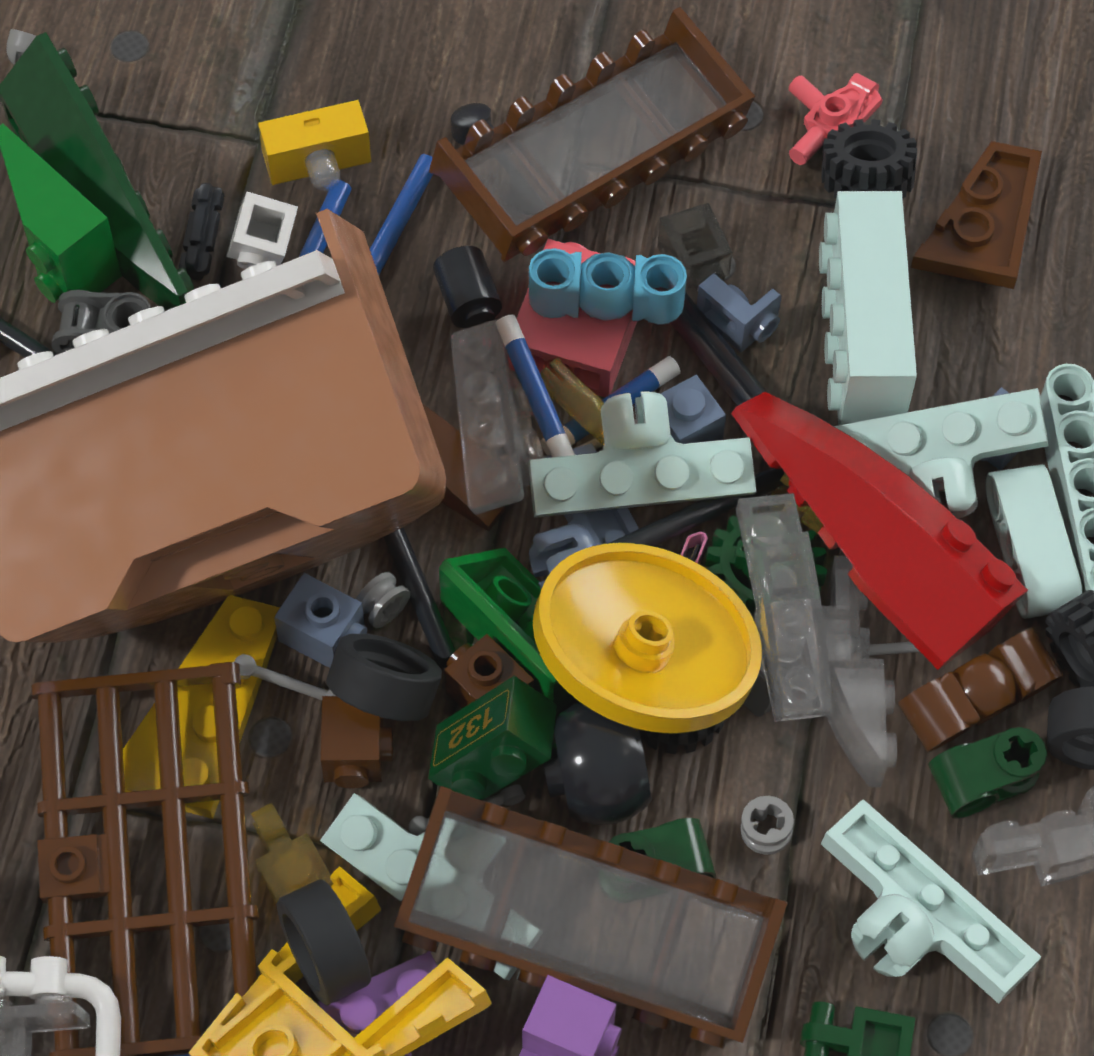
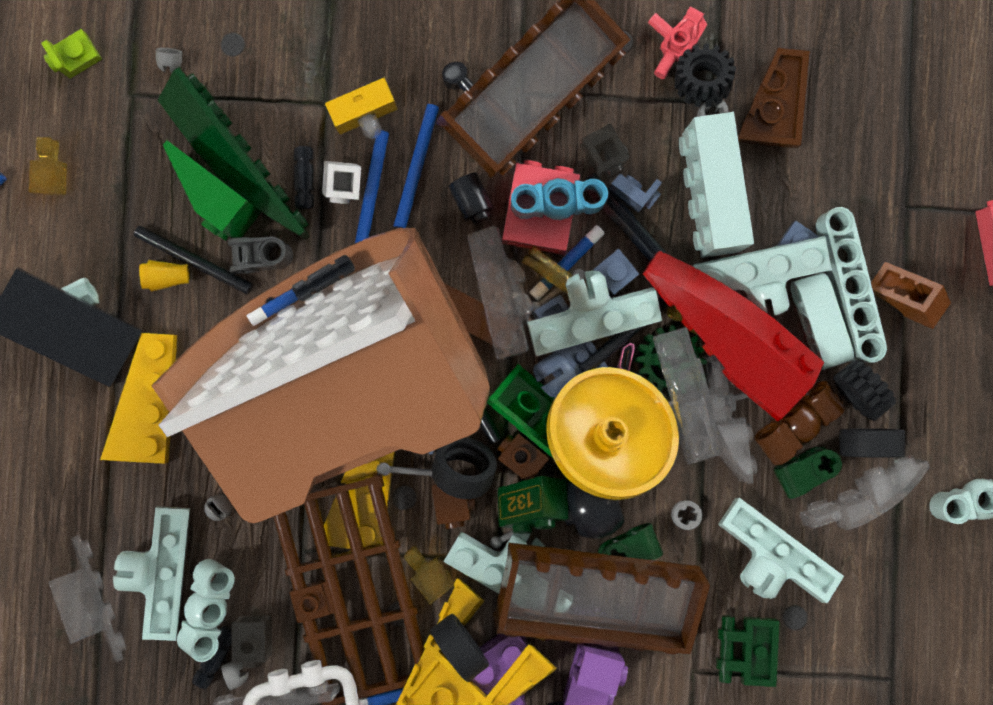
camera: 10 degrees left, 25 degrees up
(534, 386) = (524, 272): blue bar -> none

